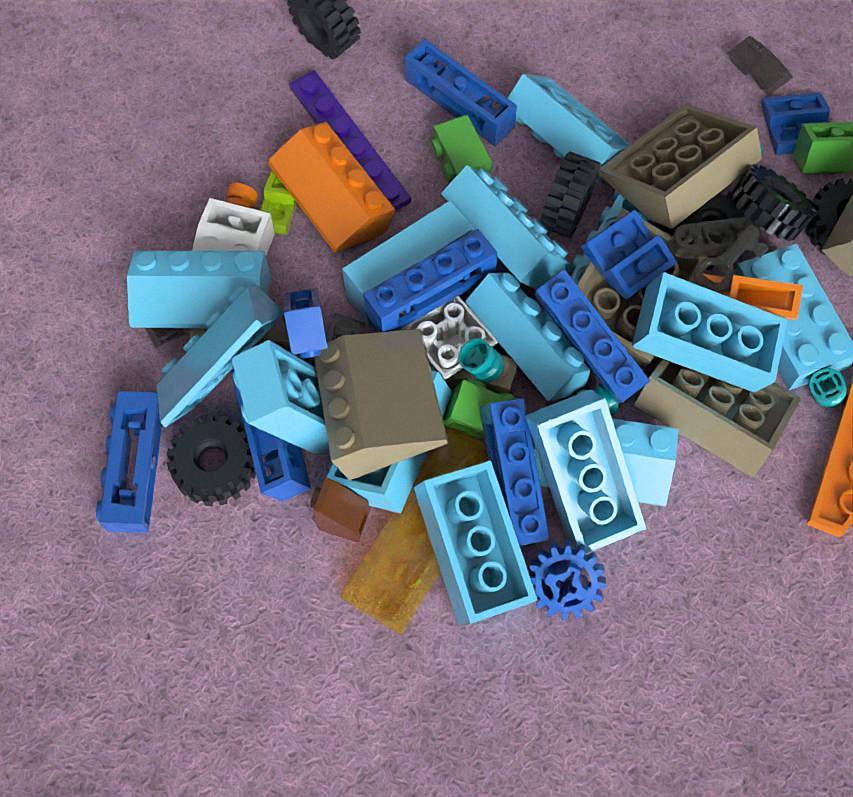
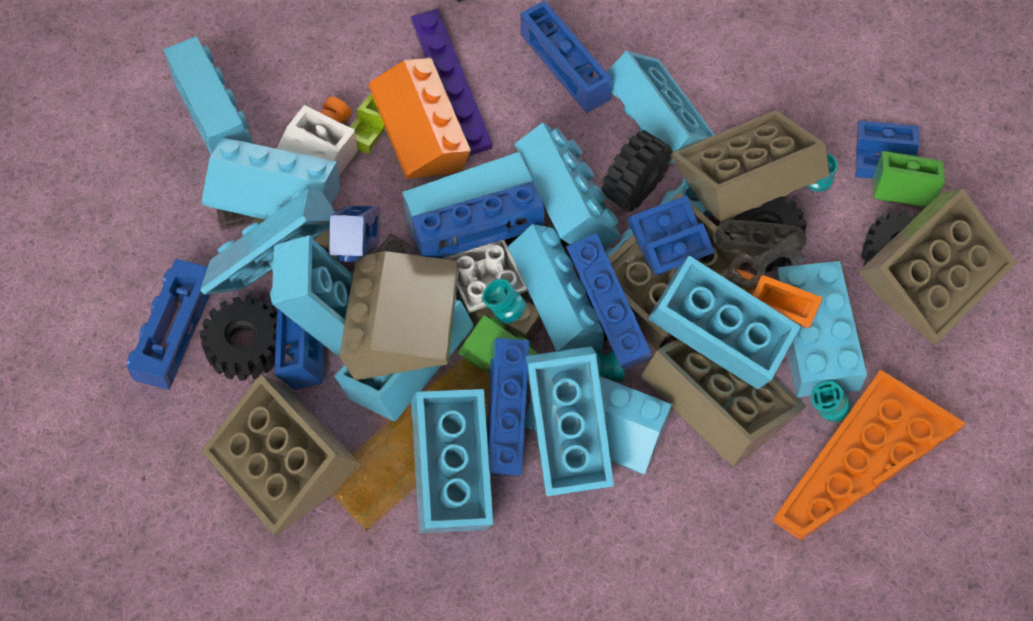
camera: 15 degrees right, 5 degrees down
(100, 209) = (204, 93): none -> medium azure brick
(288, 579) = (278, 455): none -> dark tan slope
(339, 510) = (340, 406): reddish brown slope -> none
(459, 146) = (550, 106): bright green brick -> none
(574, 593) = (538, 521): gear -> none
(761, 63) = (866, 87): clear smoke slope -> none
(773, 202) = (829, 218): black bush -> none

